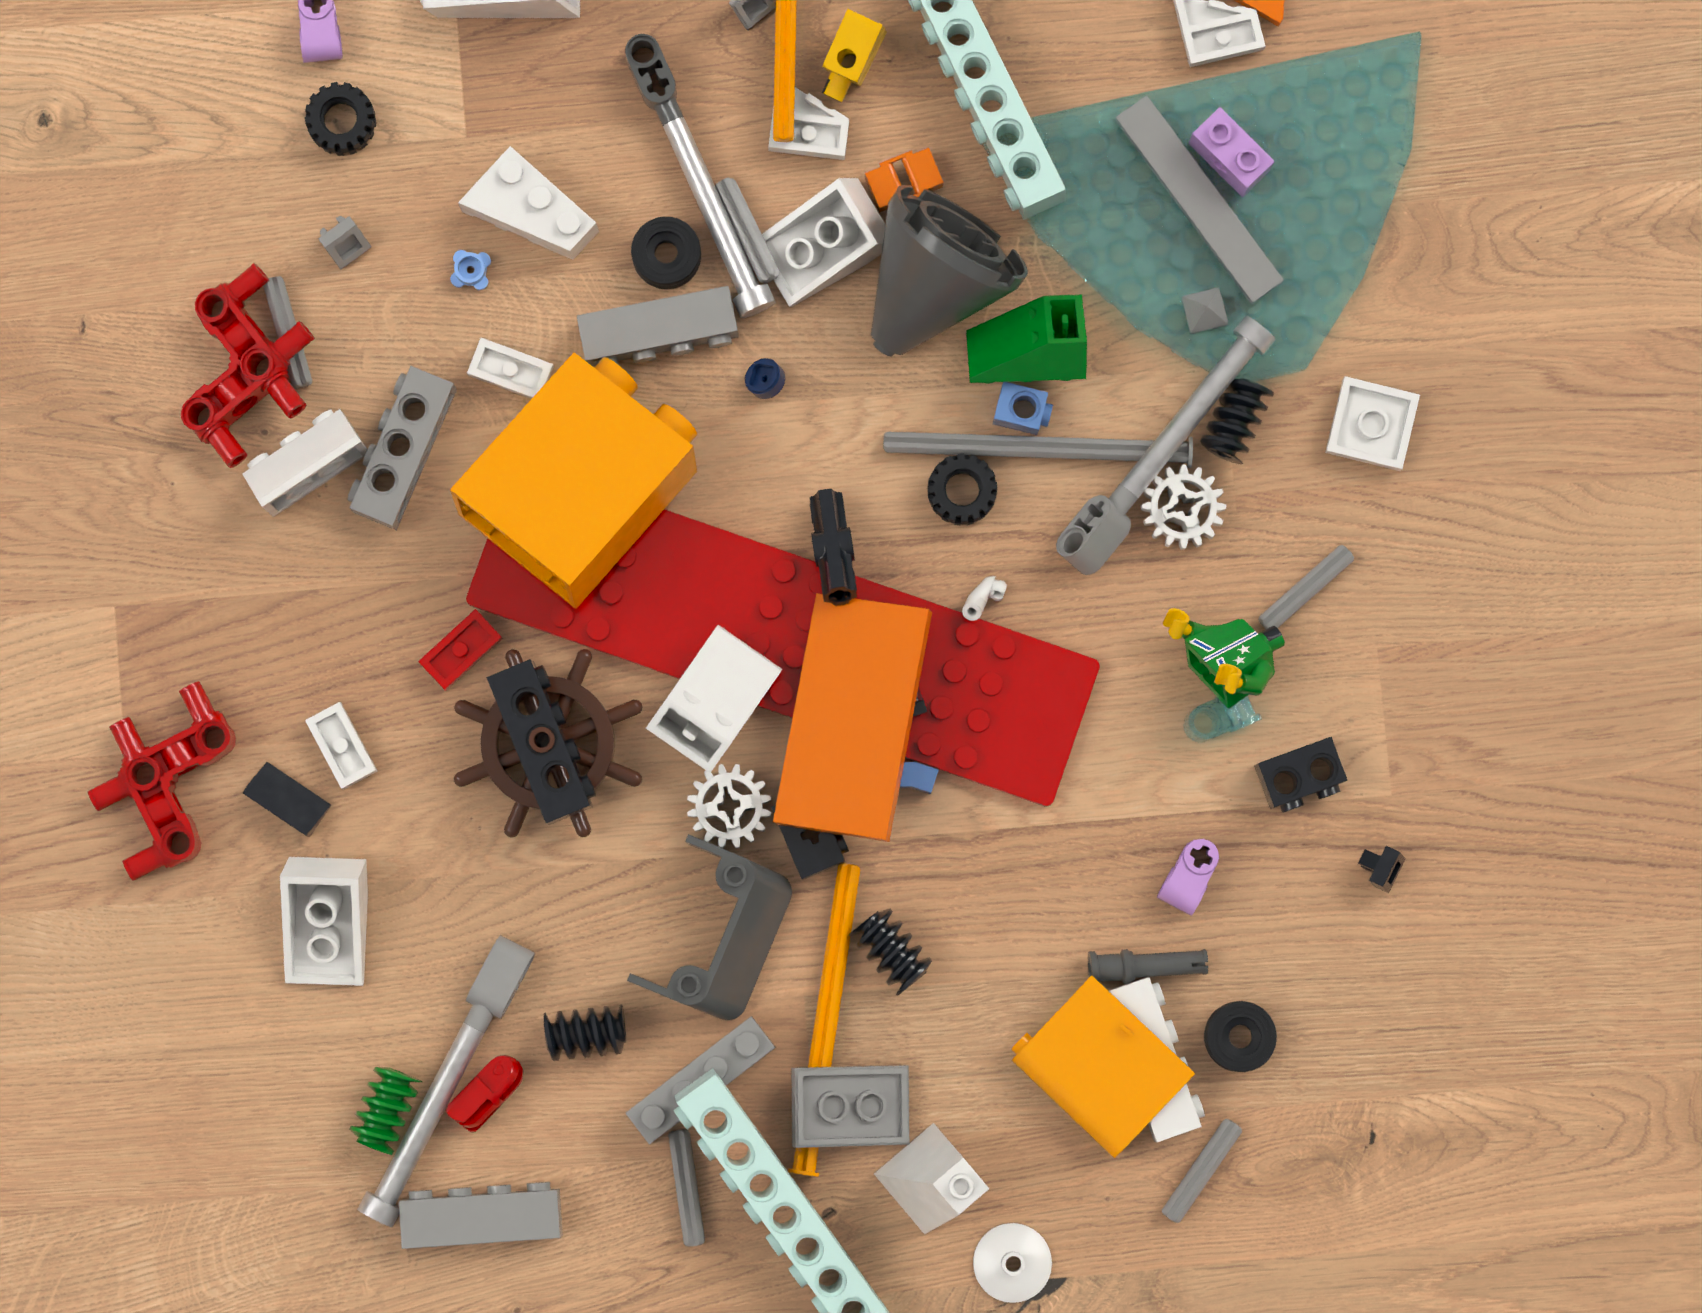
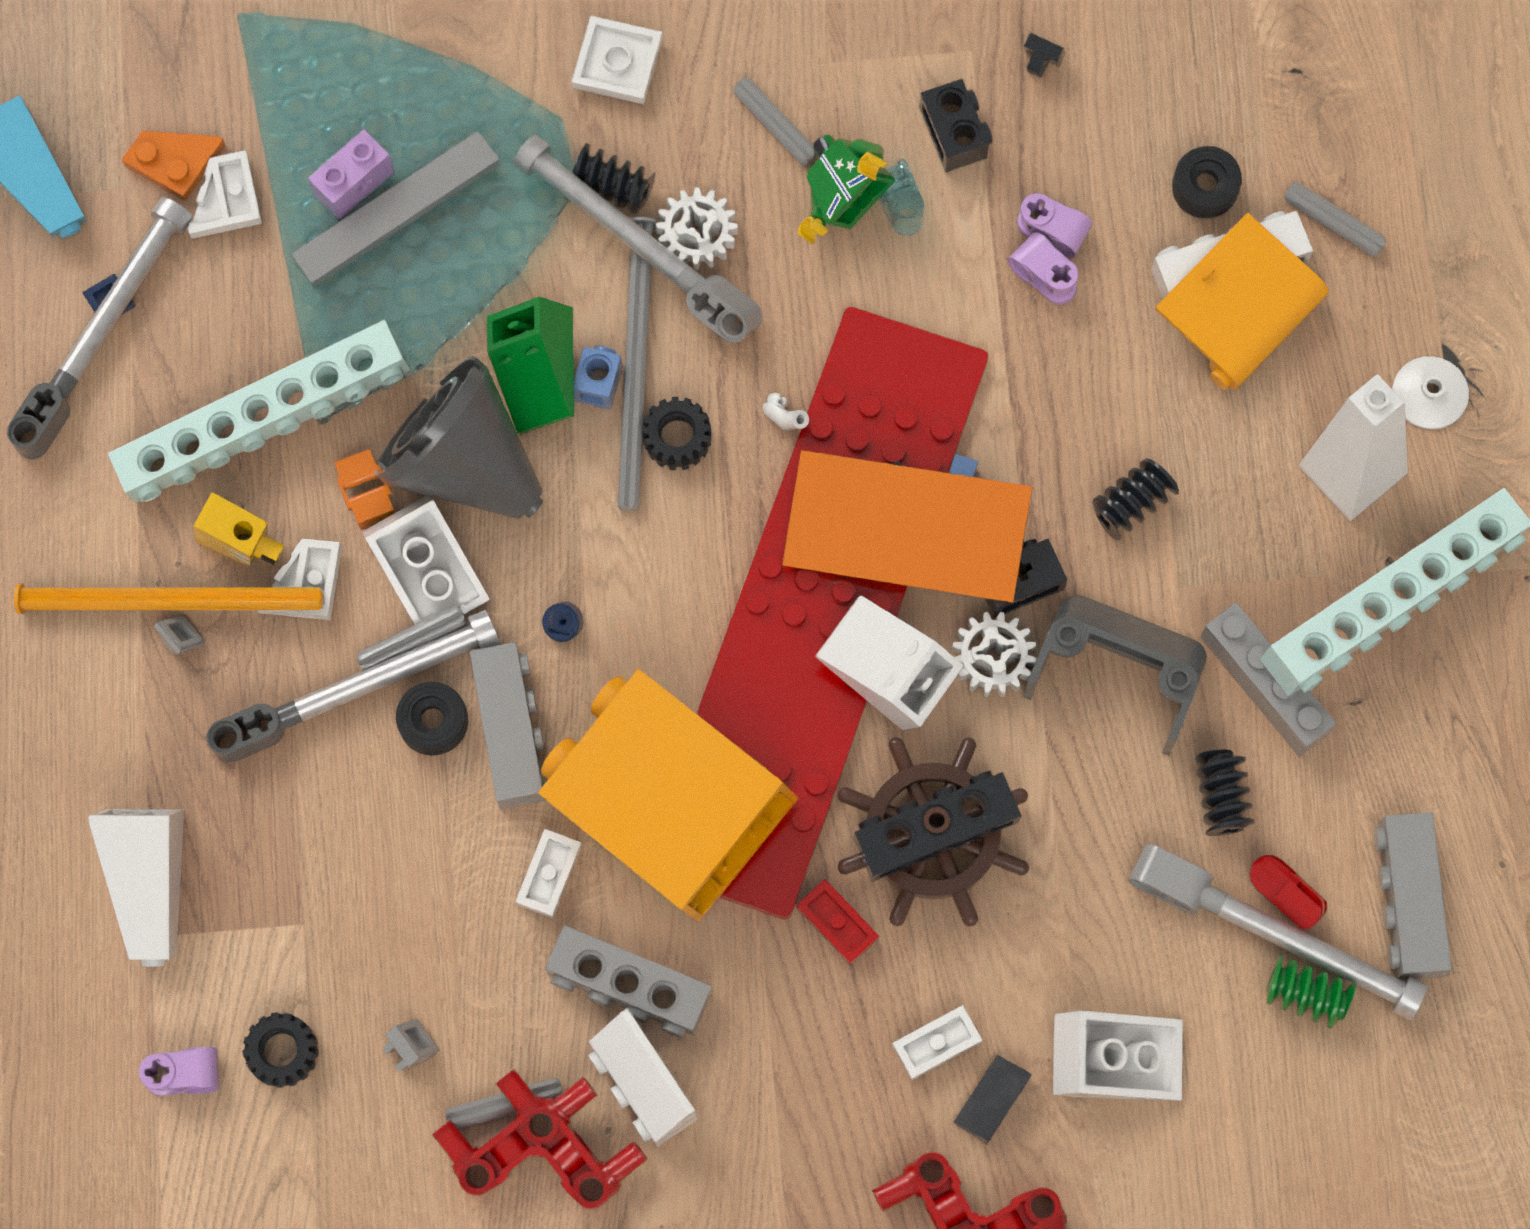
camera: 85 degrees left, 10 degrees down
(468, 259) = (435, 908): light blue plate -> none
(528, 204) = (380, 850): white wedge -> none
(686, 1187) = (1375, 696): light grey axle -> none
(830, 990) = (1204, 562): light orange axle -> none
(833, 547) = (736, 549): black piece -> none
(850, 1106) = (1288, 537): light grey tile -> none
(1129, 966) = (1142, 282): dark grey pin -> none
(1146, 860) = (1041, 264): none -> lavender piece
(1204, 310) = (505, 205): light grey slope -> none

